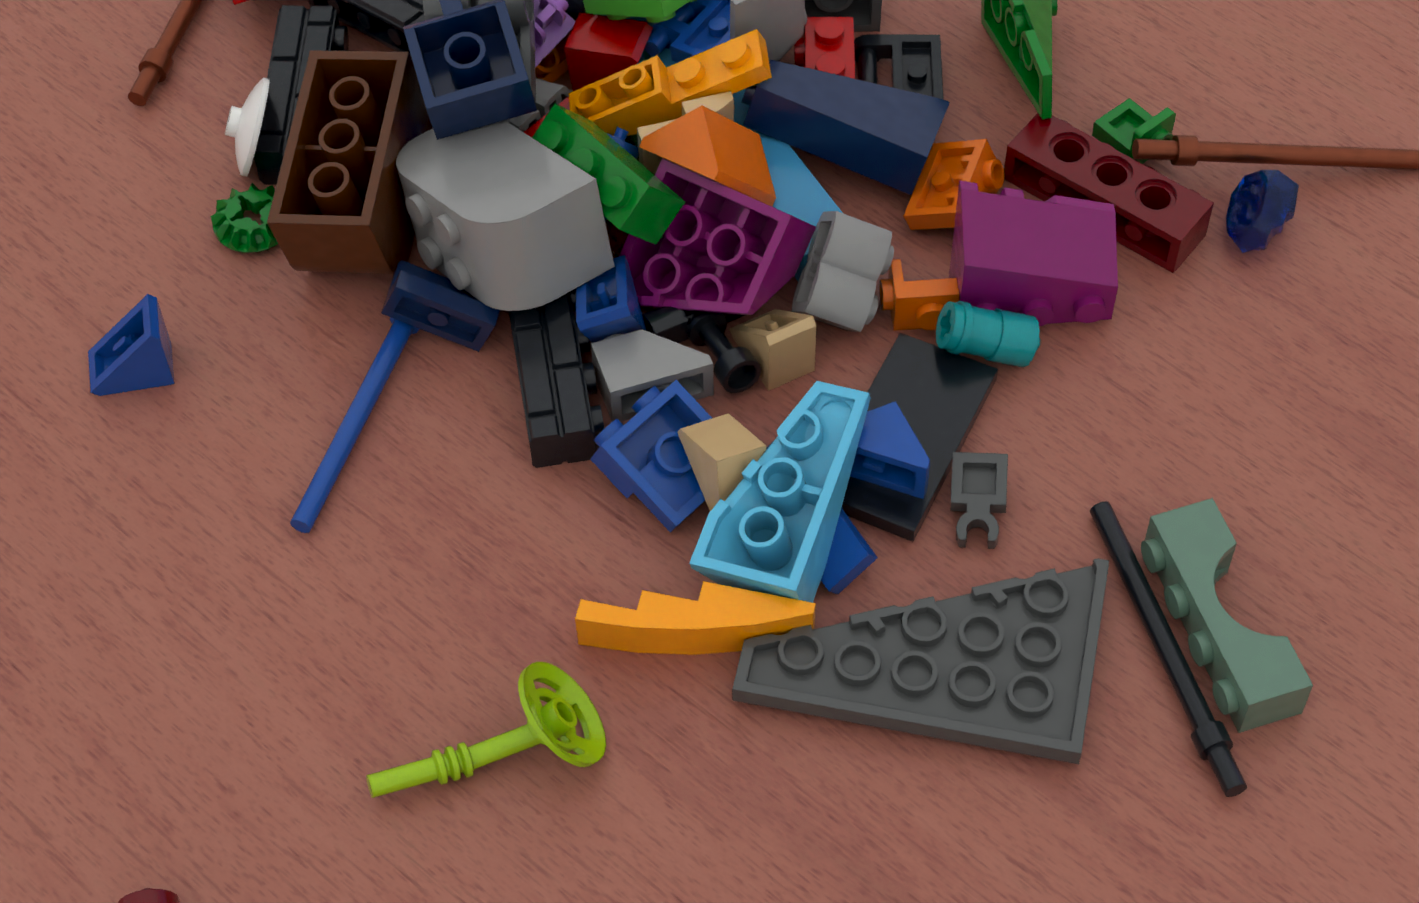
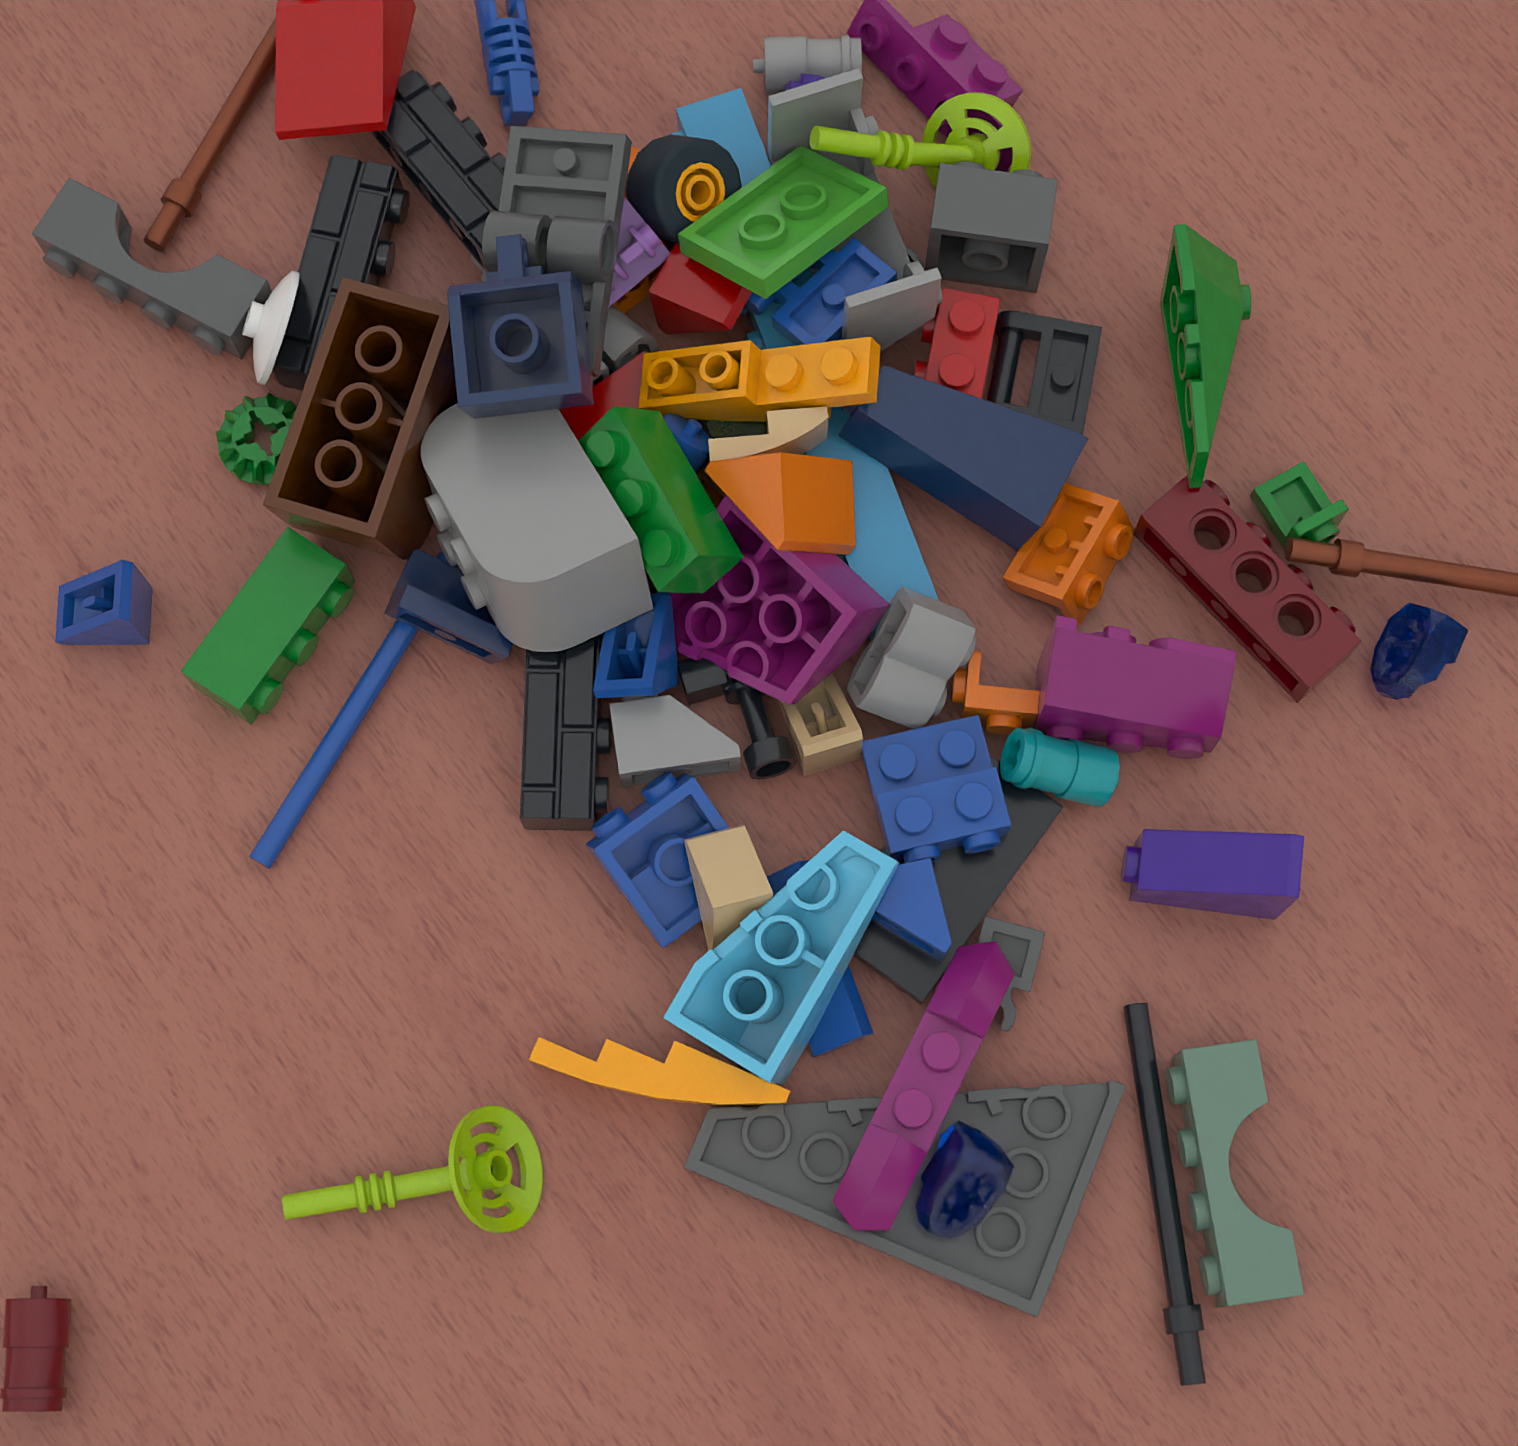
camera: 10 degrees right, 20 degrees up
(189, 128) = (92, 238): none -> dark grey arch
(280, 345) = (270, 626): none -> green brick
(891, 362) = (936, 790): none -> blue plate
(932, 583) = (923, 1087): none -> magenta brick
(985, 645) = (961, 1181): none -> clear blue rock
(1143, 385) = (1215, 871): none -> dark purple slope

